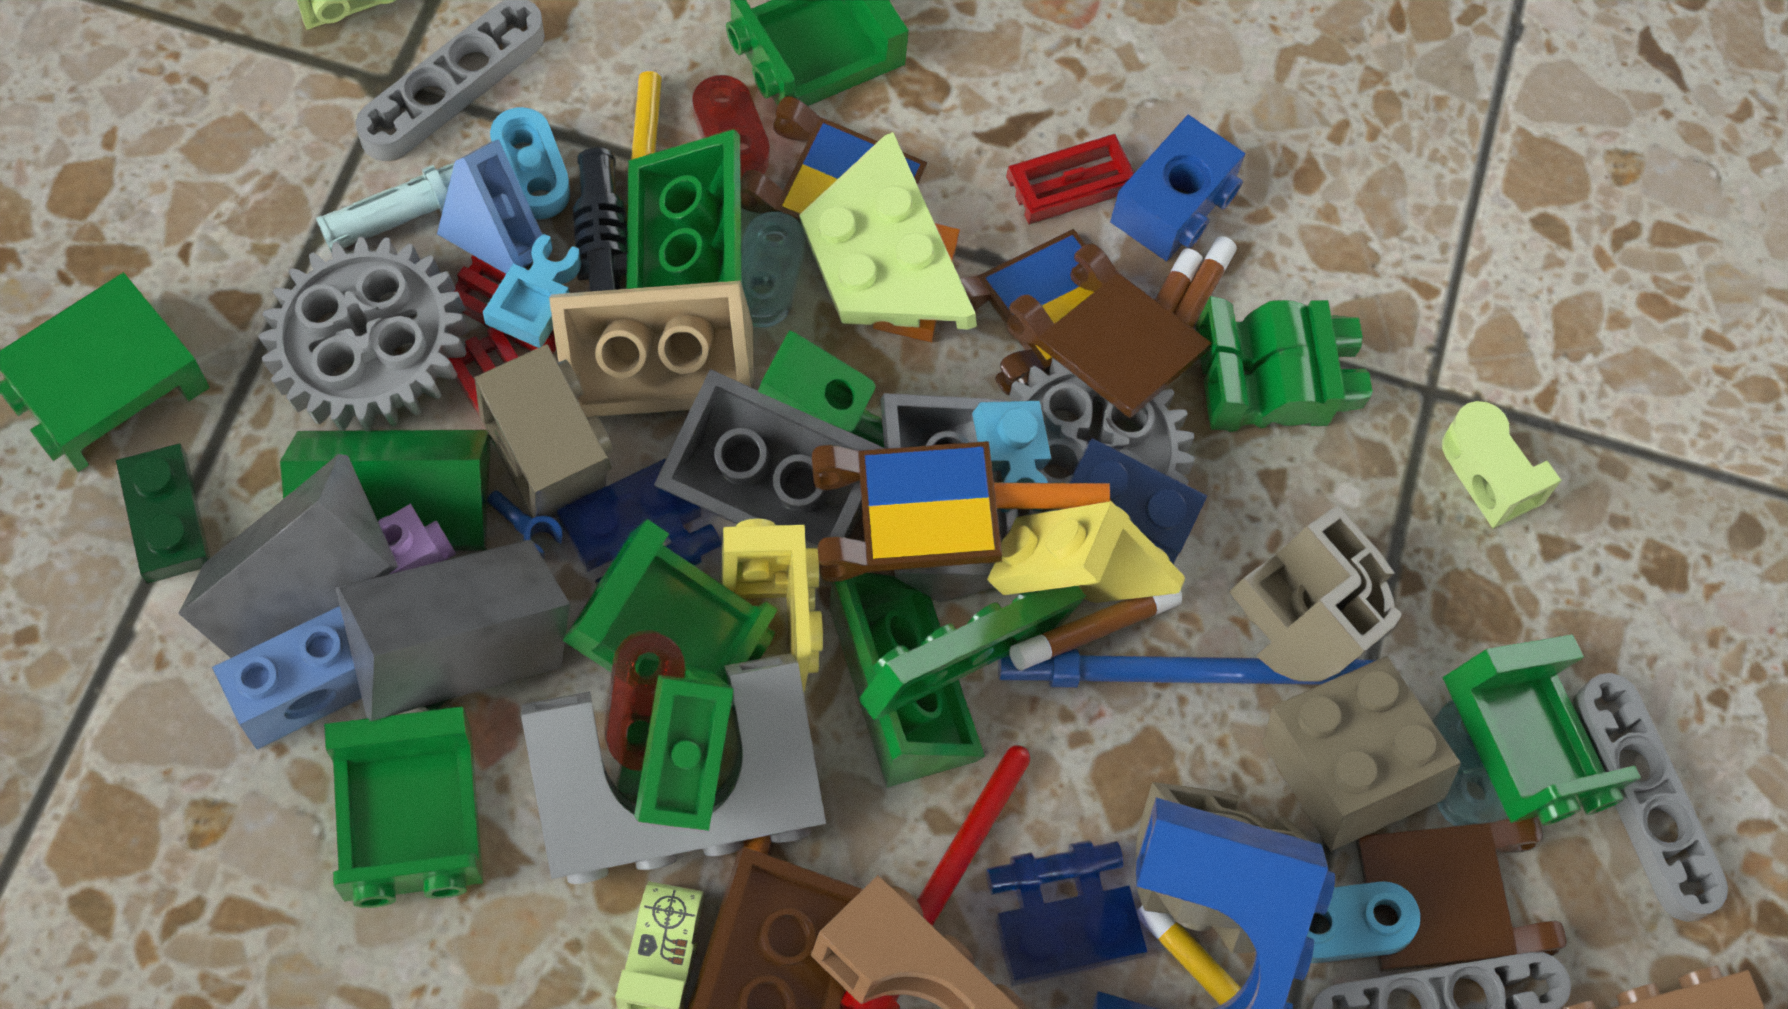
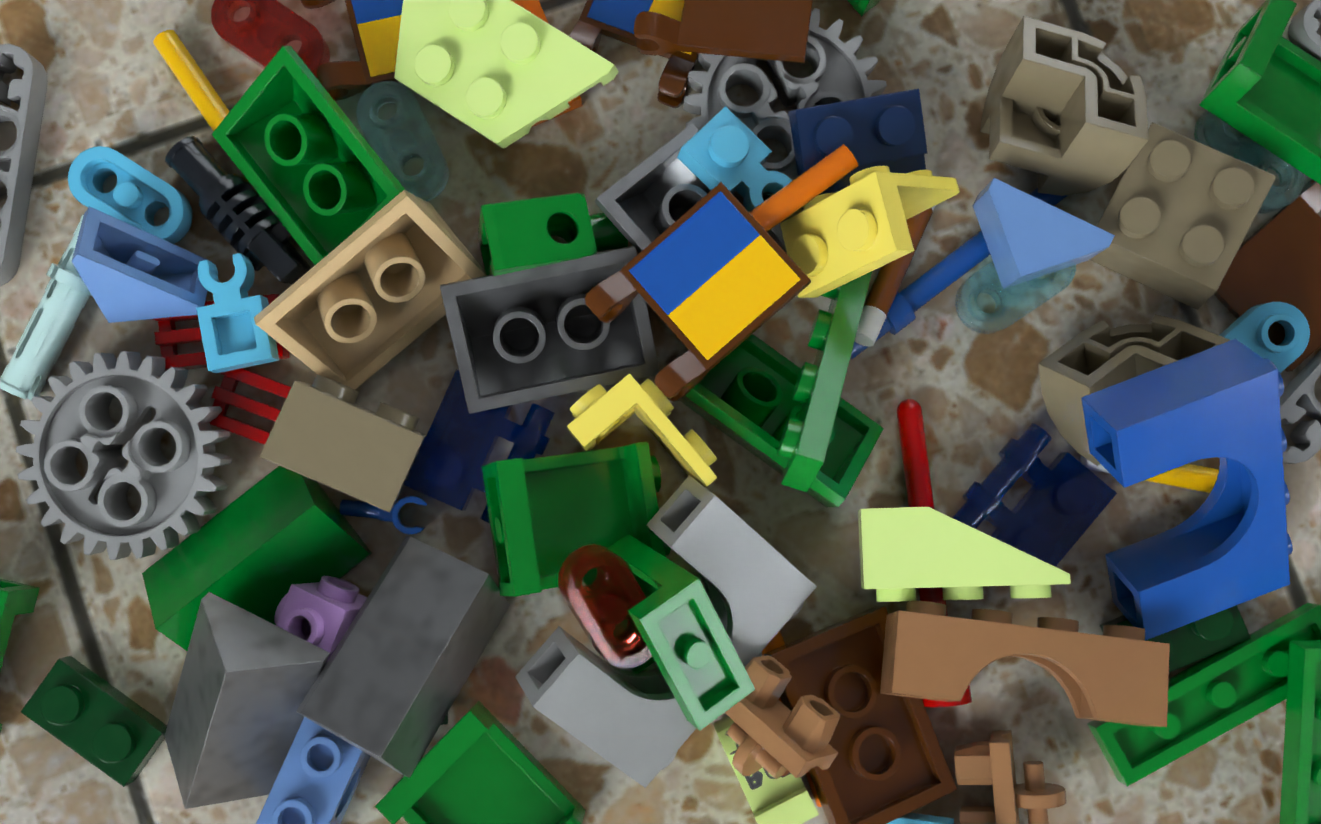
camera: 30 degrees left, 20 degrees up
(693, 895) = (772, 733): none -> medium nougat hips
(947, 867) = (931, 550): none -> yellowish green slope
(1182, 713) = (1010, 302): none -> clear light blue plate
(1222, 678) = (1032, 236): none -> medium blue slope

